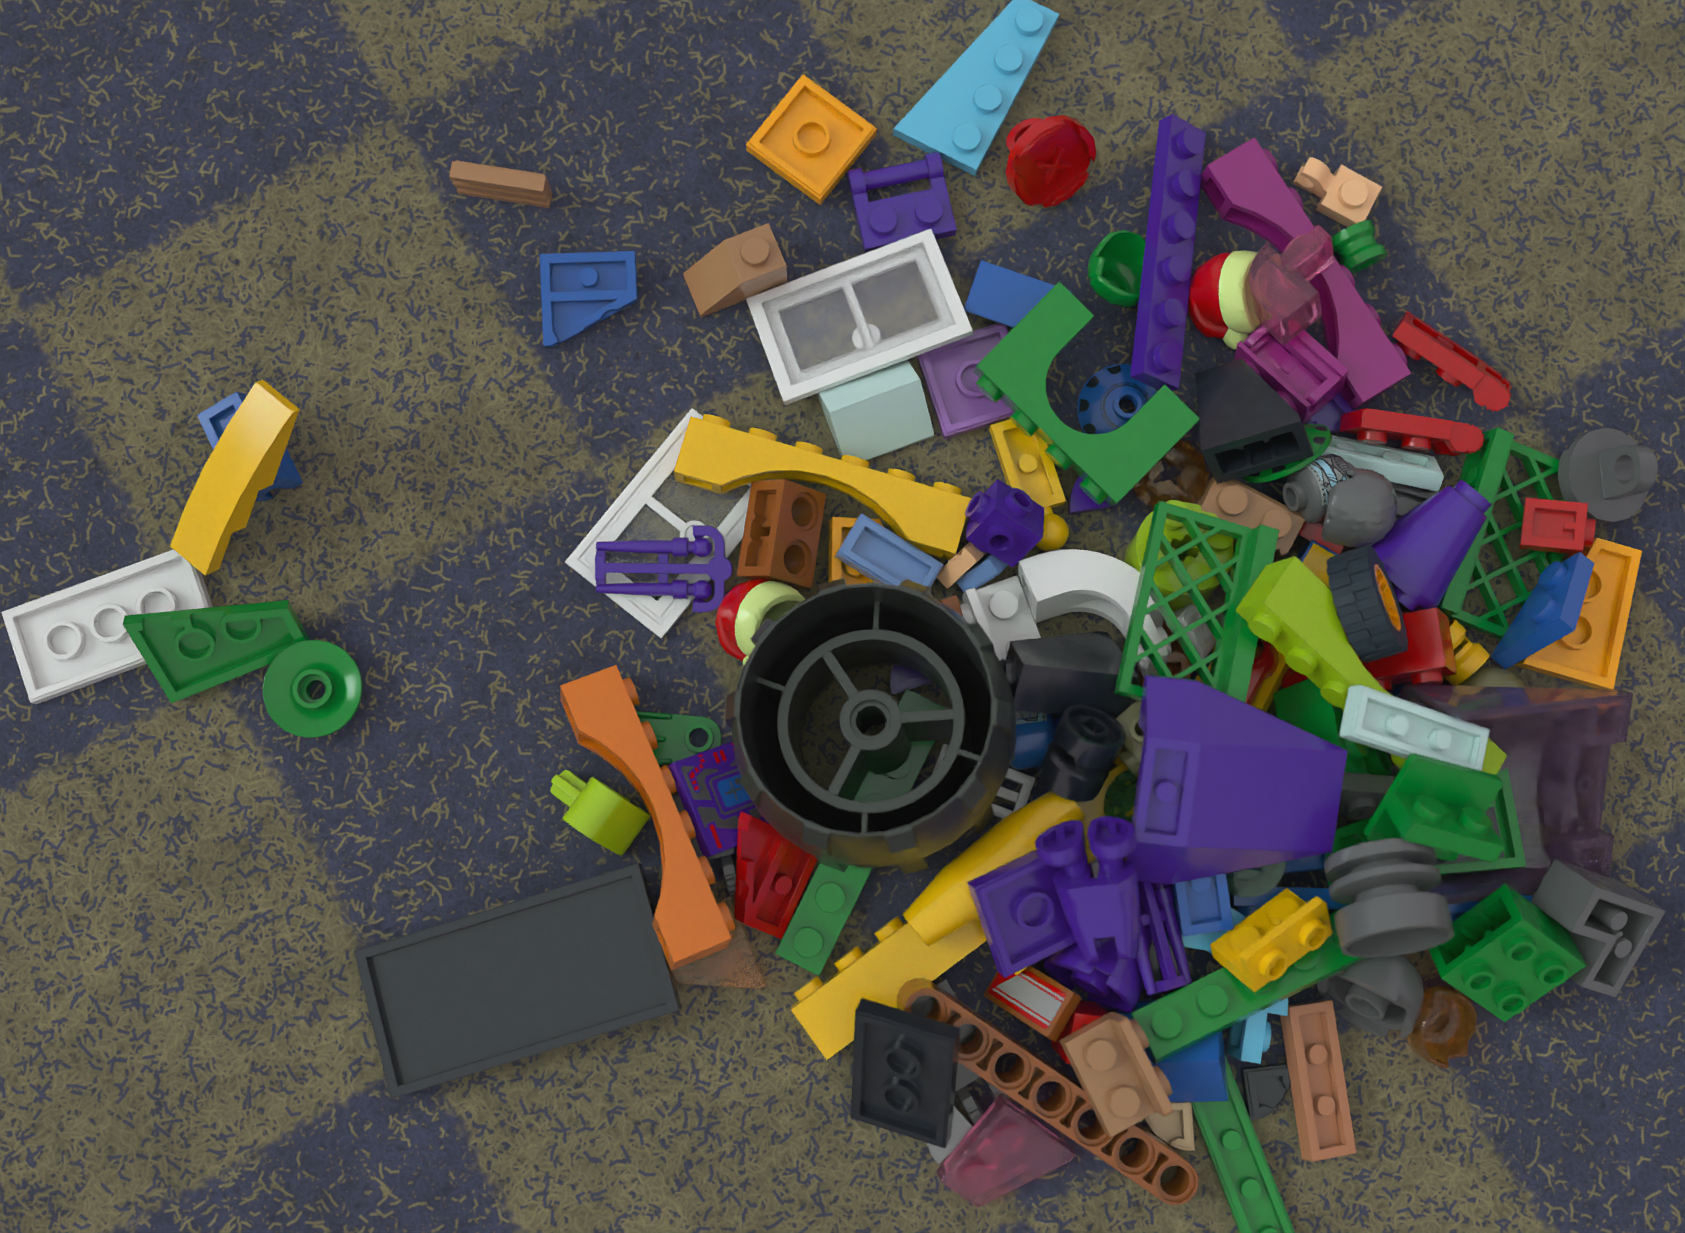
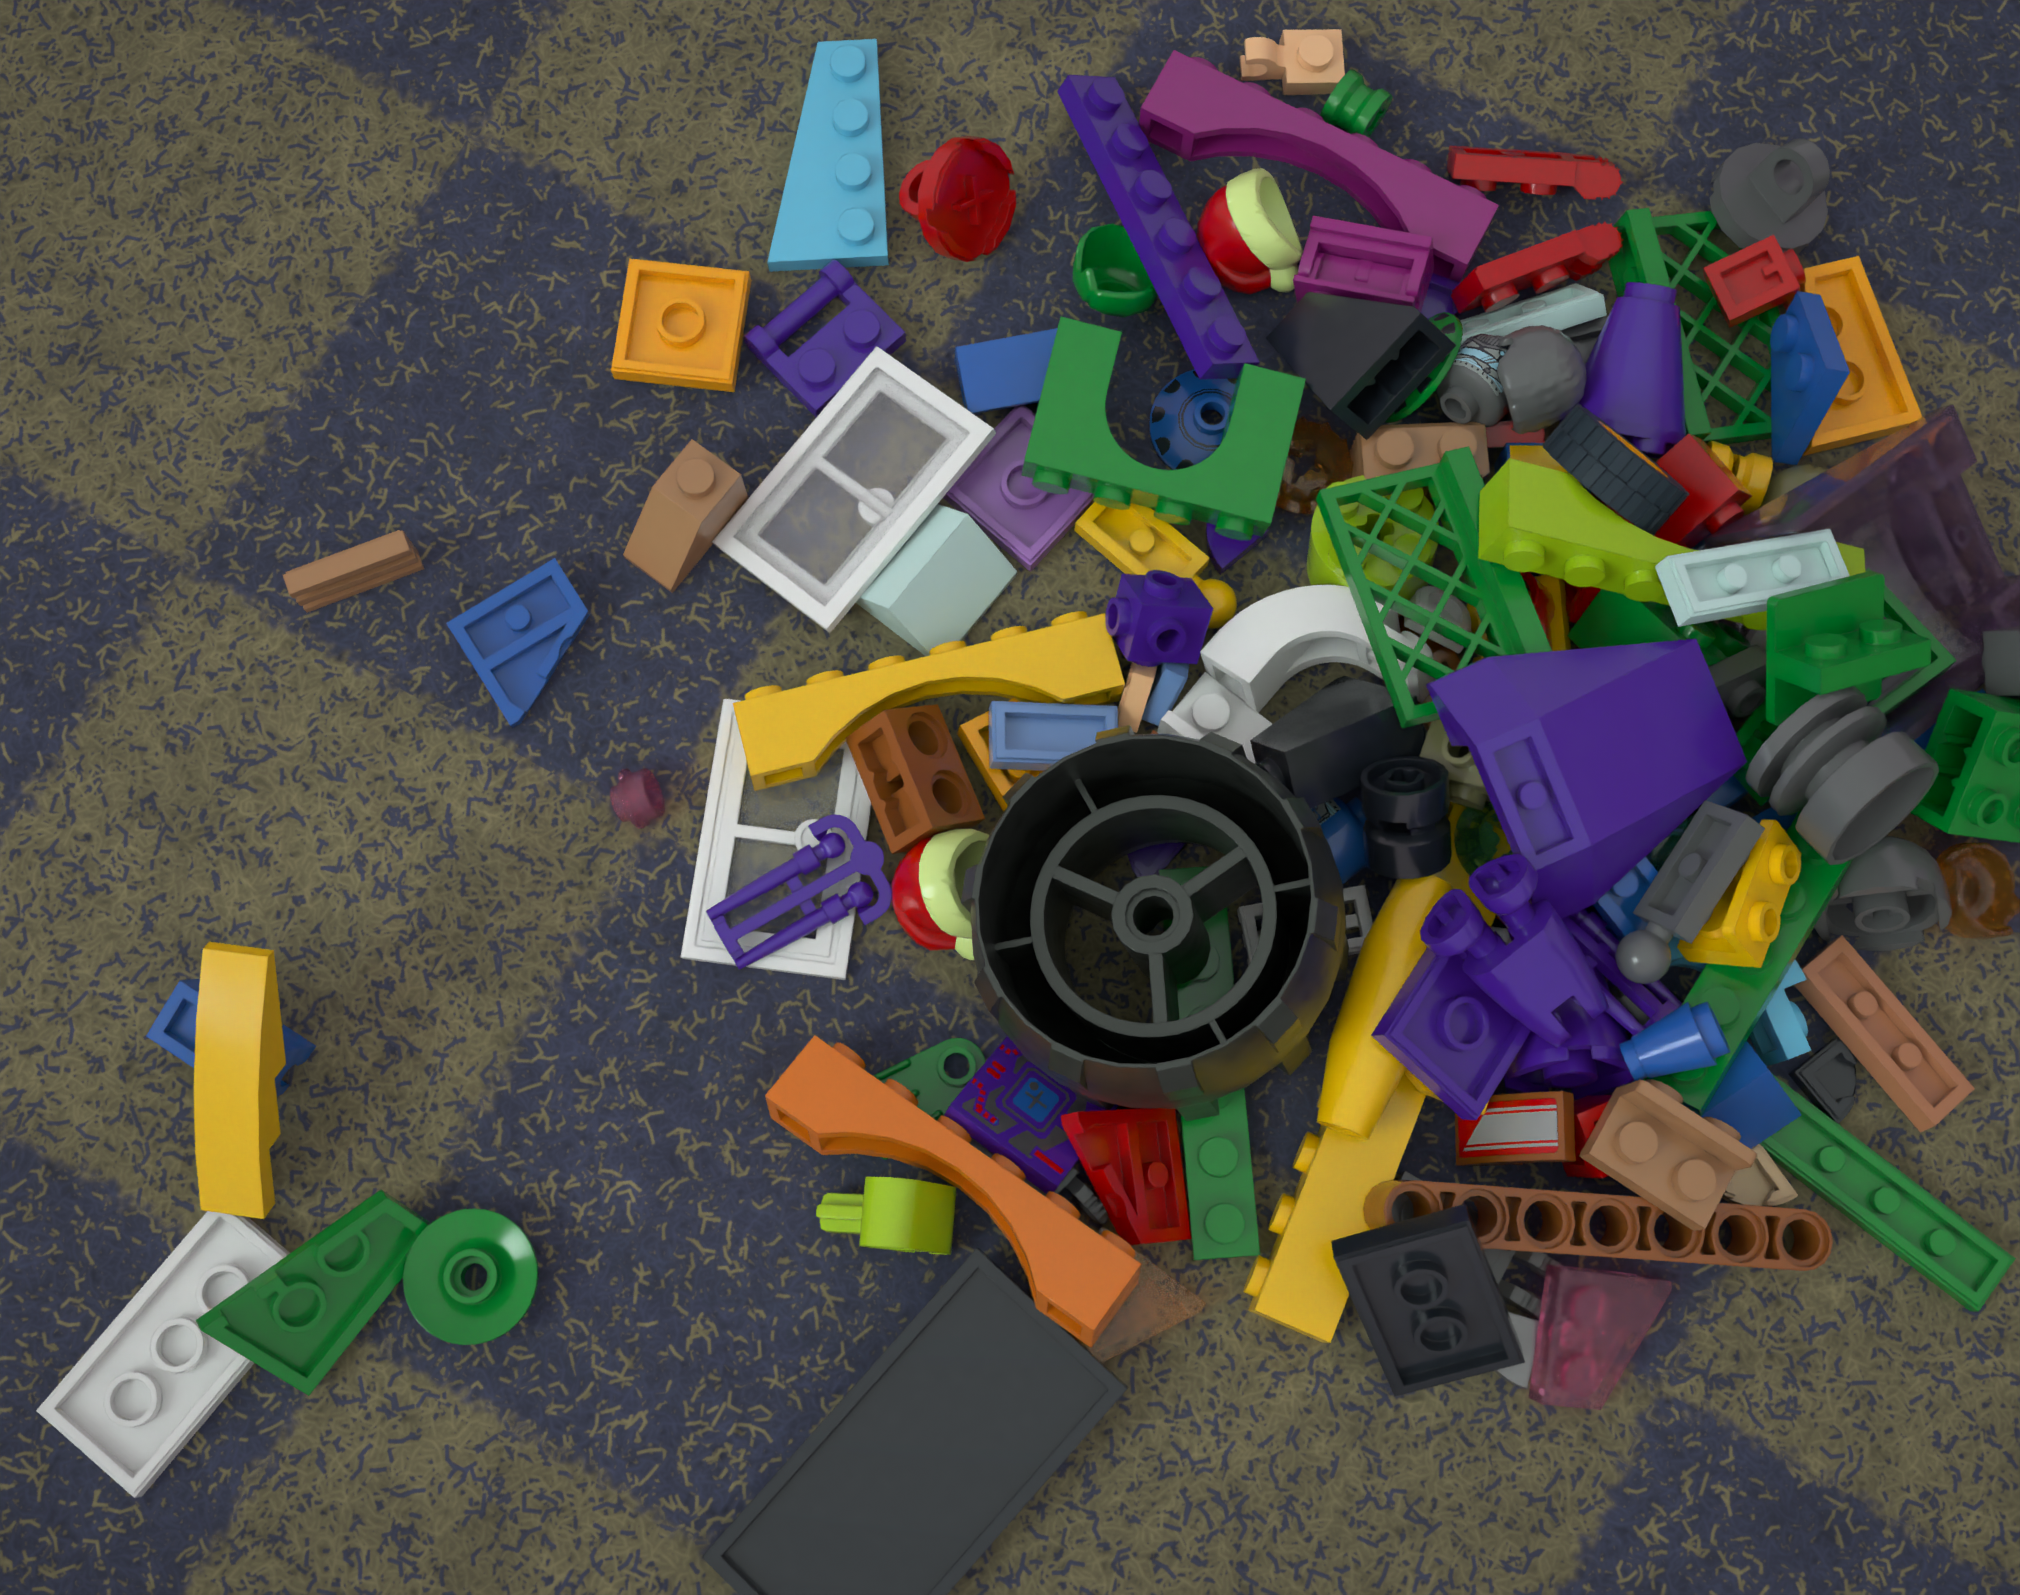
camera: 25 degrees left, 5 degrees down
(597, 441) = (637, 797): none -> clear pink plate
(1166, 1007) = (1676, 1043): none -> blue cone
(1237, 912) = (1687, 889): none -> dark grey plate
(1281, 284) = (1307, 192): clear pink brick -> none

